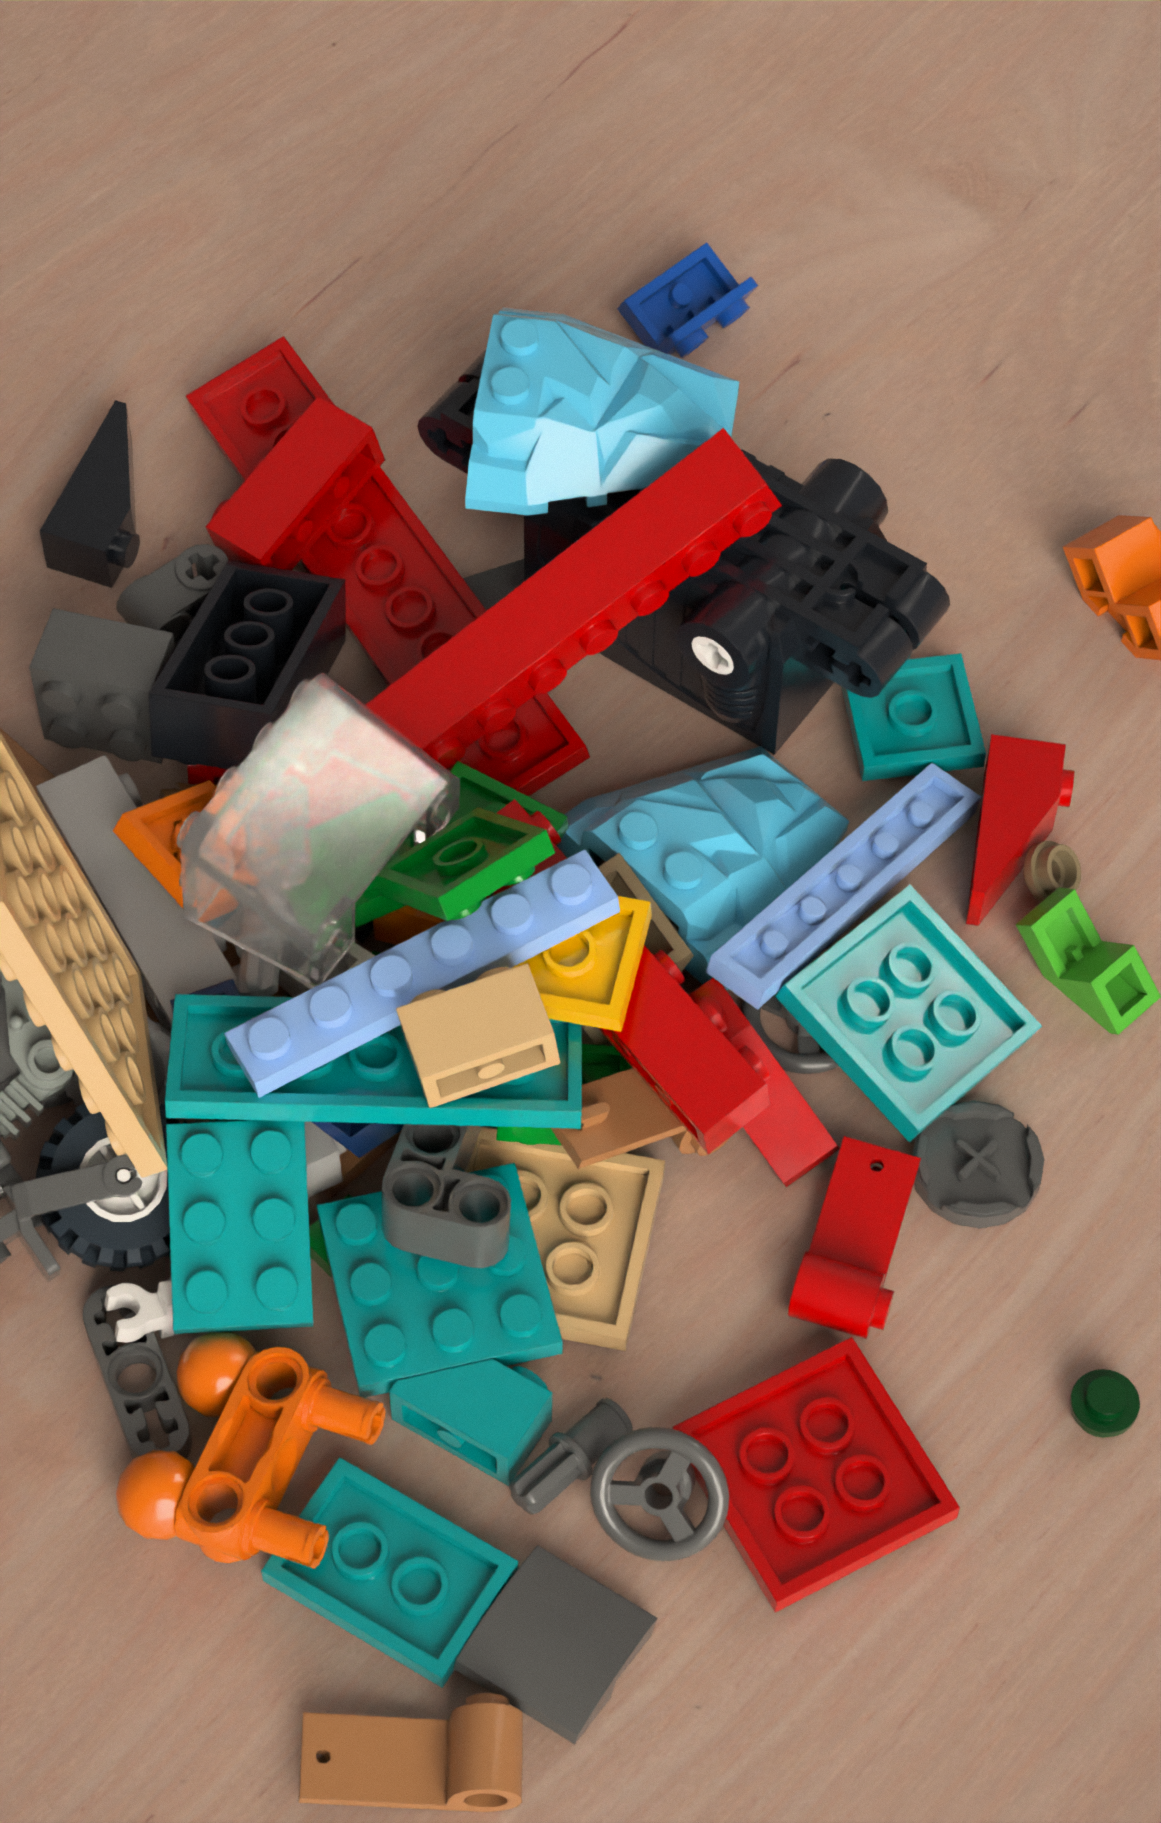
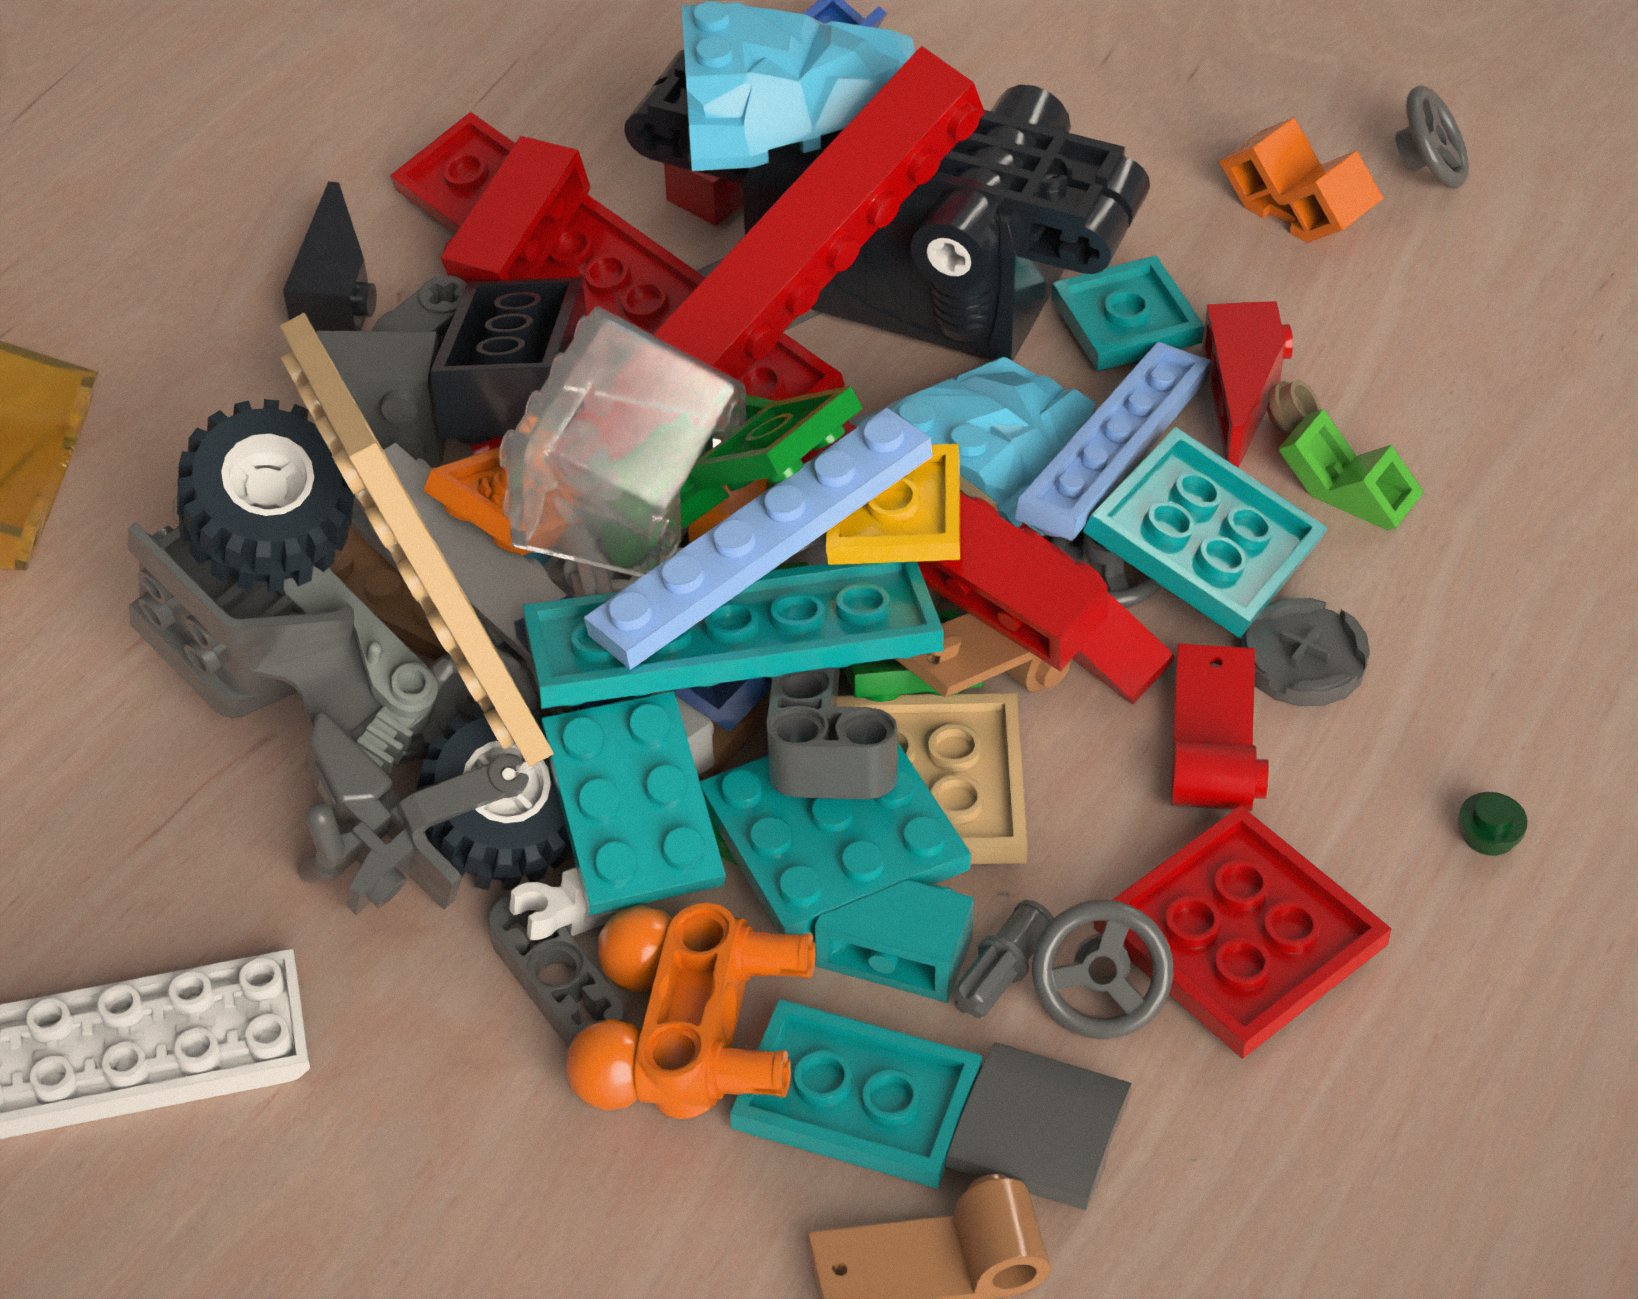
camera: 10 degrees left, 10 degrees down
(478, 1034) = (831, 572): tan brick -> none

